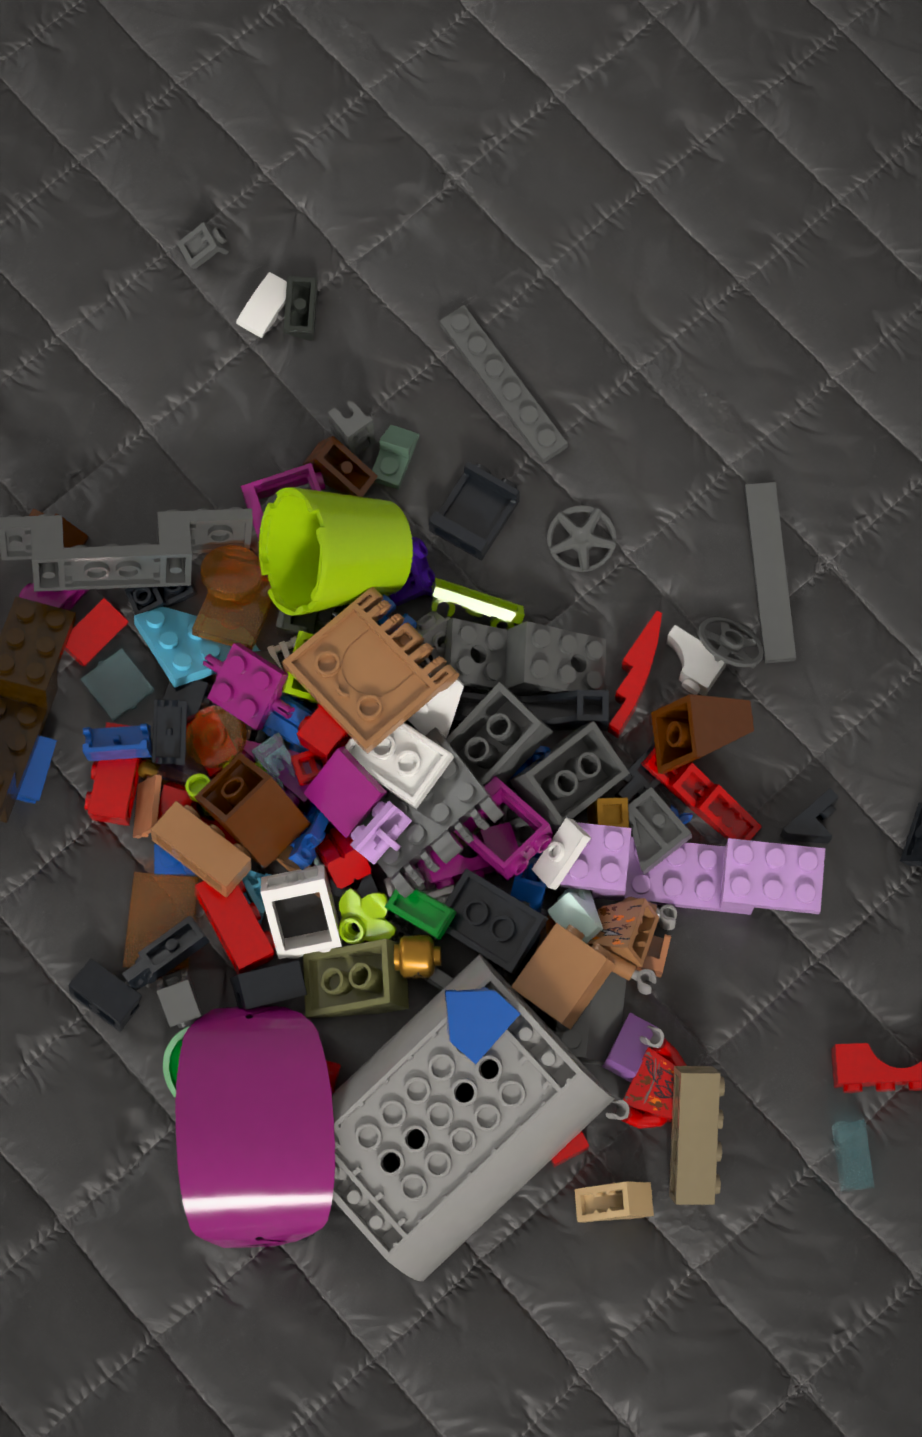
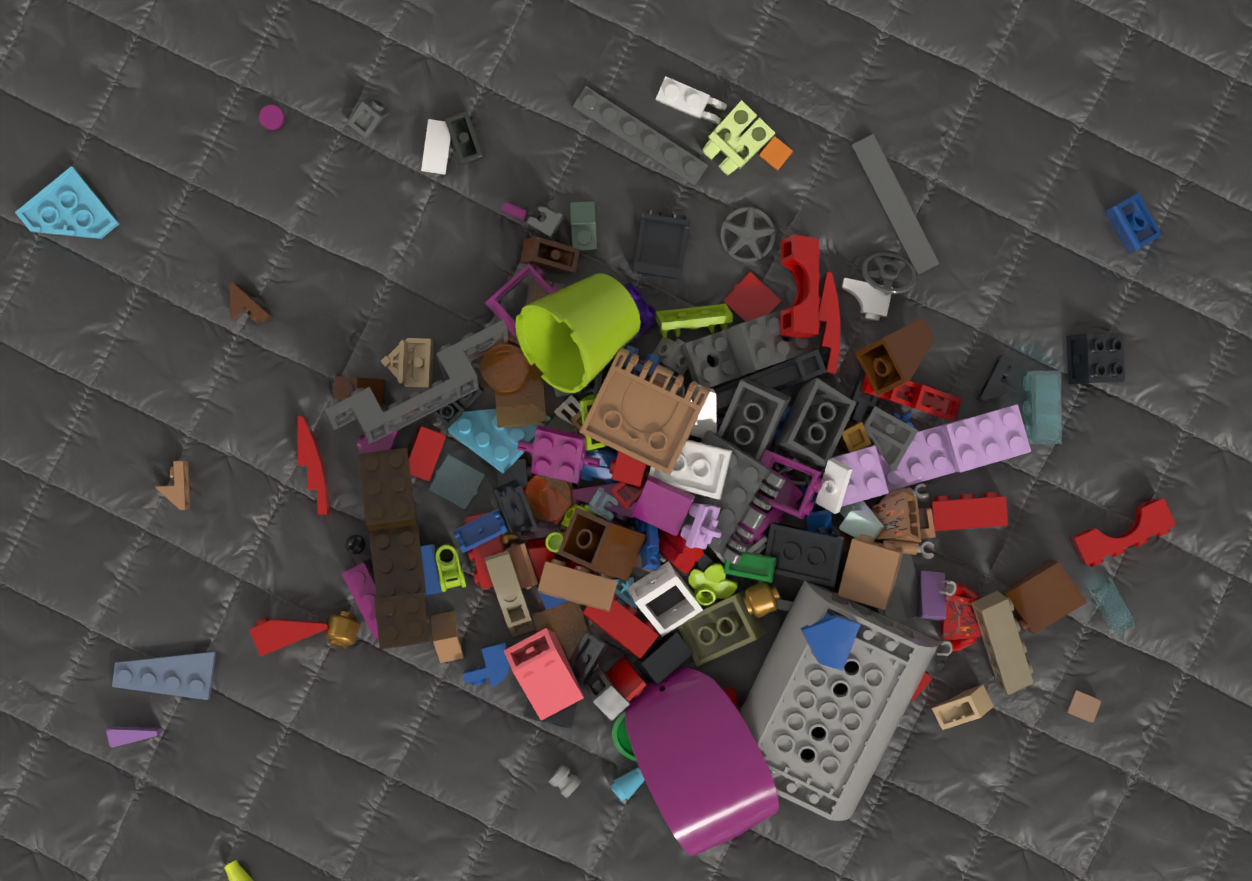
camera: 30 degrees left, 15 degrees up
(21, 859) = (446, 636): none -> medium nougat slope
(61, 782) = (449, 569): none -> lime piece
(65, 915) = (495, 669): none -> blue brick
(83, 1089) = (565, 780): none -> light grey wheel
(96, 206) = (271, 117): none -> magenta tile
(115, 939) = (544, 673): none -> coral slope
(117, 828) = (509, 593): none -> dark tan slope
(127, 523) = (412, 362): none -> tan slope
(155, 1127) = (627, 784): none -> medium azure cone
(212, 992) = (626, 679): none -> red slope
(319, 405) = (514, 211): none -> magenta tile
(556, 609) = (751, 299): none -> red piece
(575, 366) = (688, 100): none -> white hinge
(615, 426) = (732, 144): none -> yellowish green hips
(632, 584) = (801, 257): none -> red arch
(652, 461) = (776, 153): none -> orange tile
(716, 962) = (969, 511): none -> red brick
(768, 1266) = (1084, 706): none -> medium nougat slope
(769, 1102) = (1044, 596): none -> reddish brown slope
(857, 873) = (1043, 407): none -> clear light blue brick

